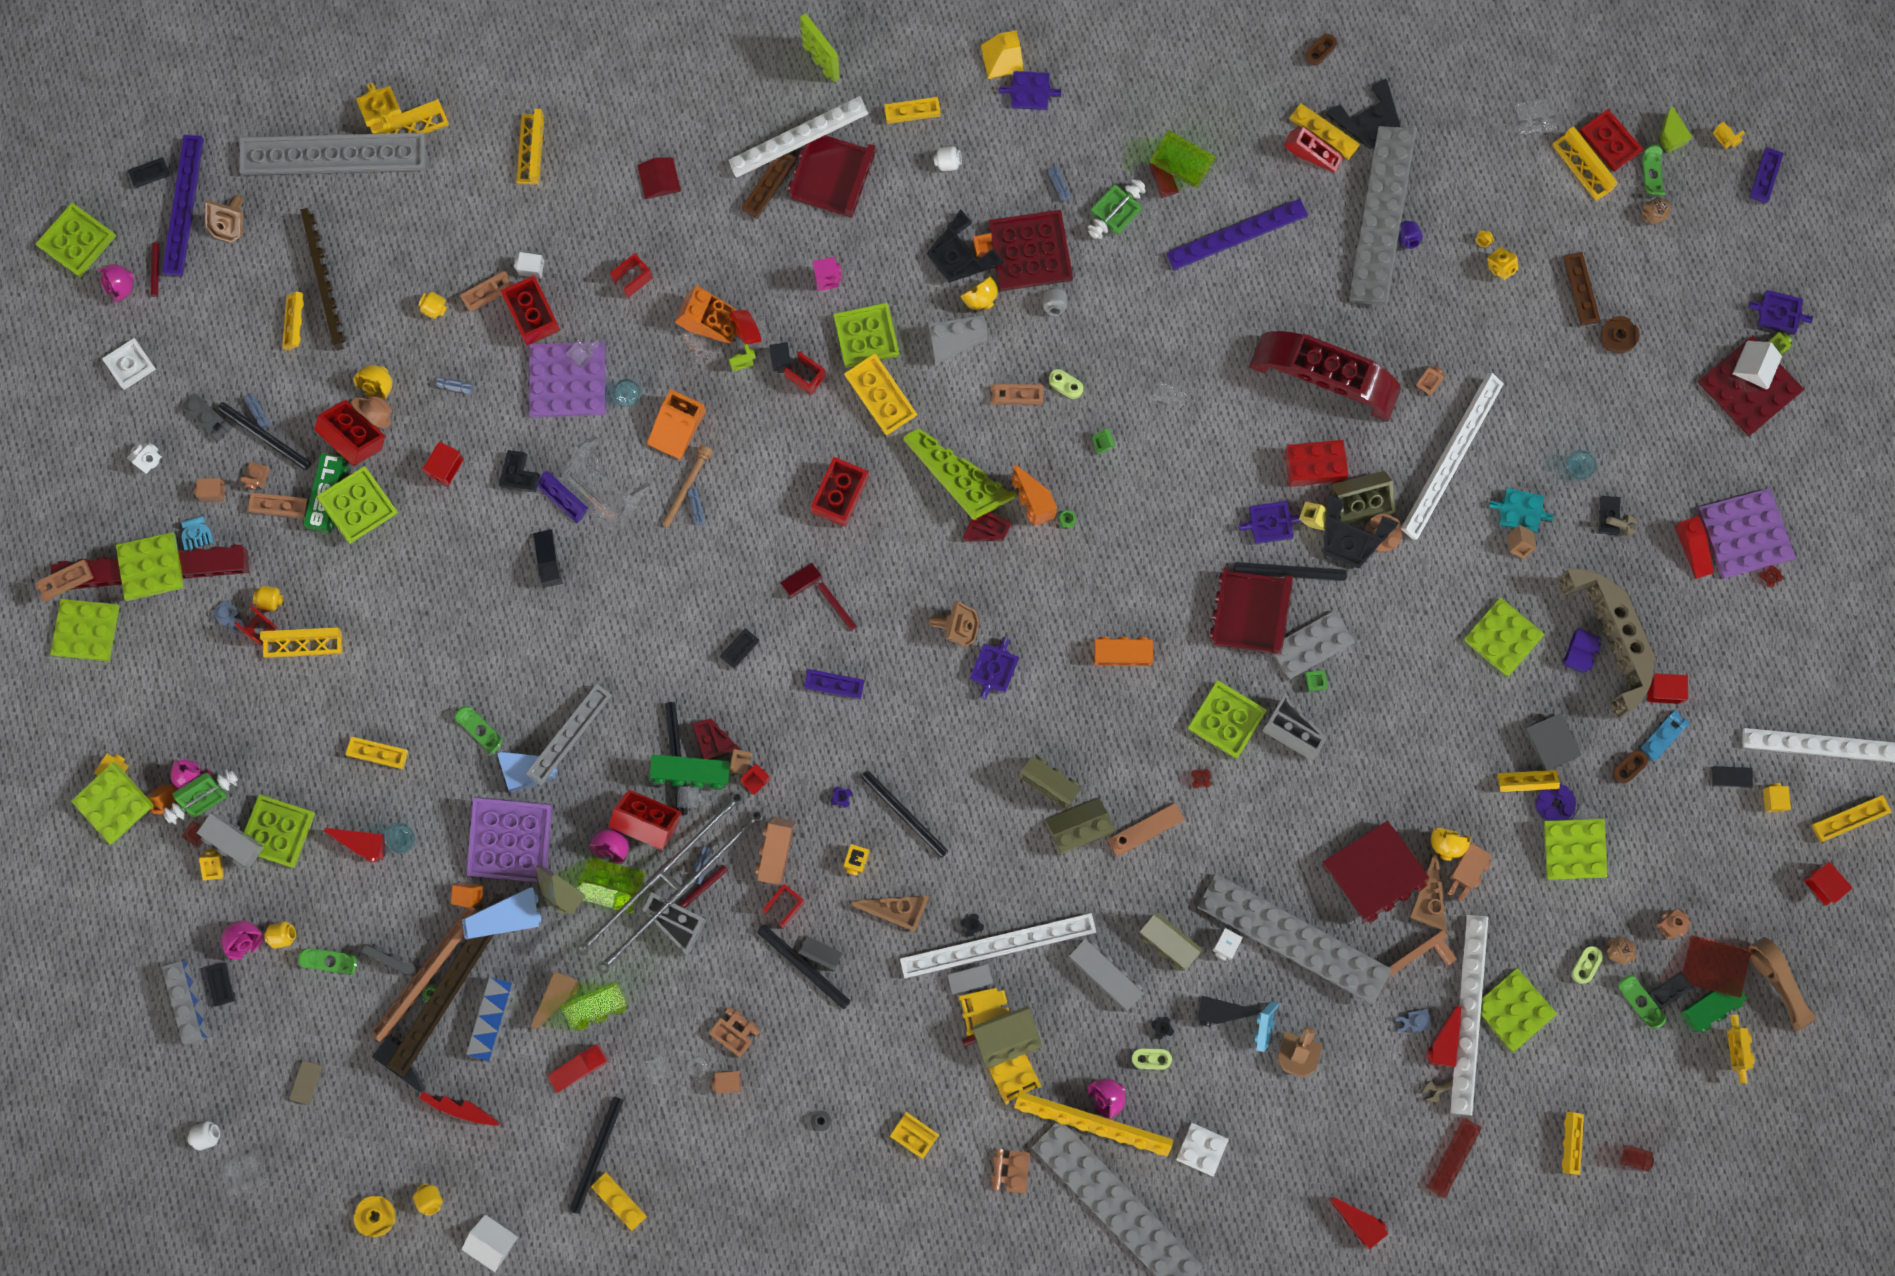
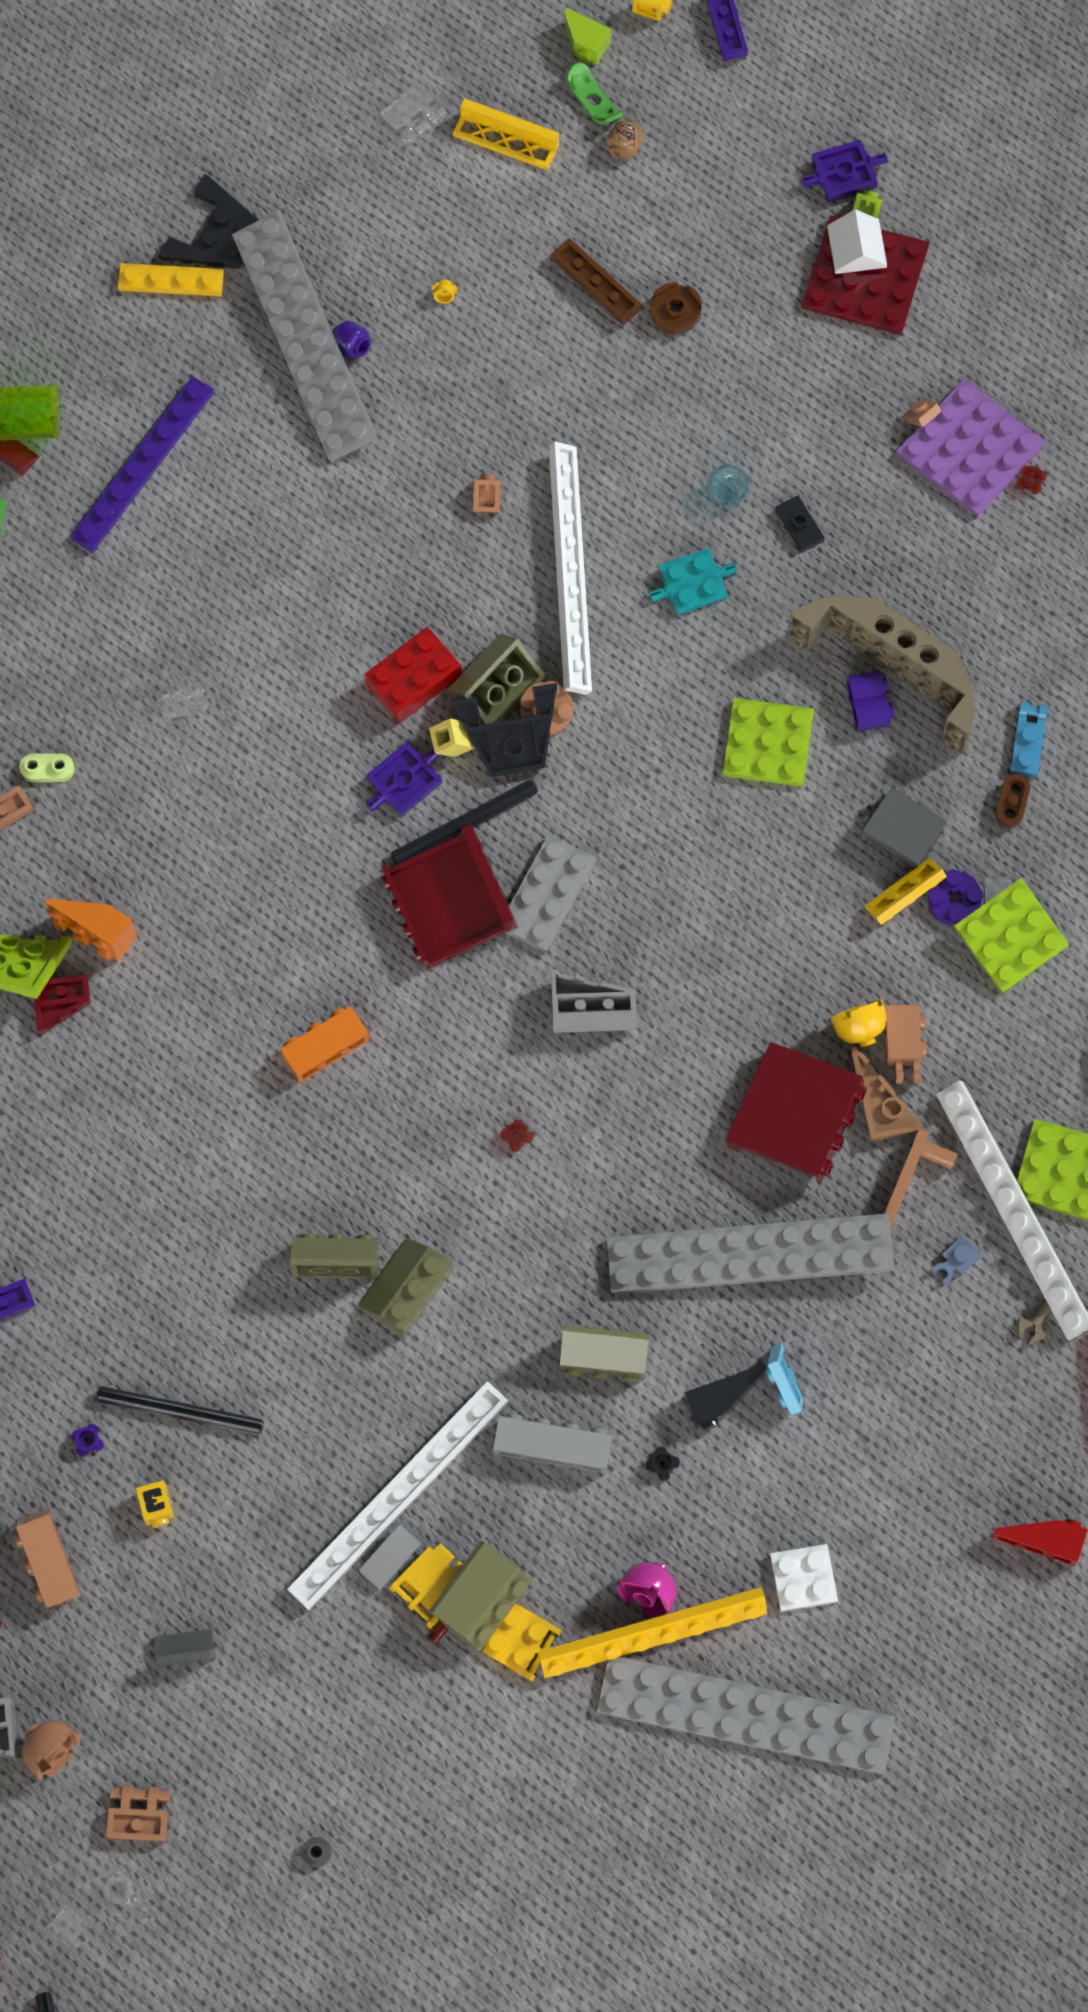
camera: 30 degrees left, 5 degrees down
(708, 960) = (48, 1747): none -> nougat cylinder
(727, 1082) = (168, 1882): nougat brick -> none
(776, 897) = (85, 1609): red piece -> none
(803, 966) = (173, 1677): black axle -> none
(900, 911) = (252, 1531): medium nougat wing -> none
(914, 1135) = (443, 1792): yellow plate -> none
(960, 625) = (102, 1137): medium nougat piece -> none
(967, 924) = (347, 1483): black plate -> none
(994, 668) = (178, 1163): dark purple plate -> none
(1017, 1171) = (597, 1752): nougat plate -> none
(1067, 514) = (150, 921): bright green plate -> none
(1103, 441) = (137, 807): bright green plate -> none
(1146, 830) = (489, 1240): nougat piece -> none
(1151, 1059) = (672, 1509): yellowish green plate -> none
(1227, 719) = (502, 1045): lime plate -> none
(1227, 944) = (675, 1313): white brick -> none
(1299, 1054) = (846, 1386): medium nougat piece -> none
(1312, 149) = (169, 309): red slope -> none
(1316, 681) = (579, 932): bright green plate -> none
(1320, 50) = (104, 188): reddish brown plate -> none
(1329, 369) = (354, 553): dark red slope -> none
(1445, 1043) = (1009, 1264): red slope -> none
(1503, 263) = (484, 306): yellow brick -> none
(1521, 541) = (716, 617): medium nougat panel -> none
(1611, 140) = (519, 89): red plate -> none
(1627, 519) = (824, 516): dark tan bar -> none
(1668, 689) = (997, 682): red piece -> none
(1695, 545) = (922, 498): red slope -> none
(1730, 493) = (922, 412): none -> nougat plate

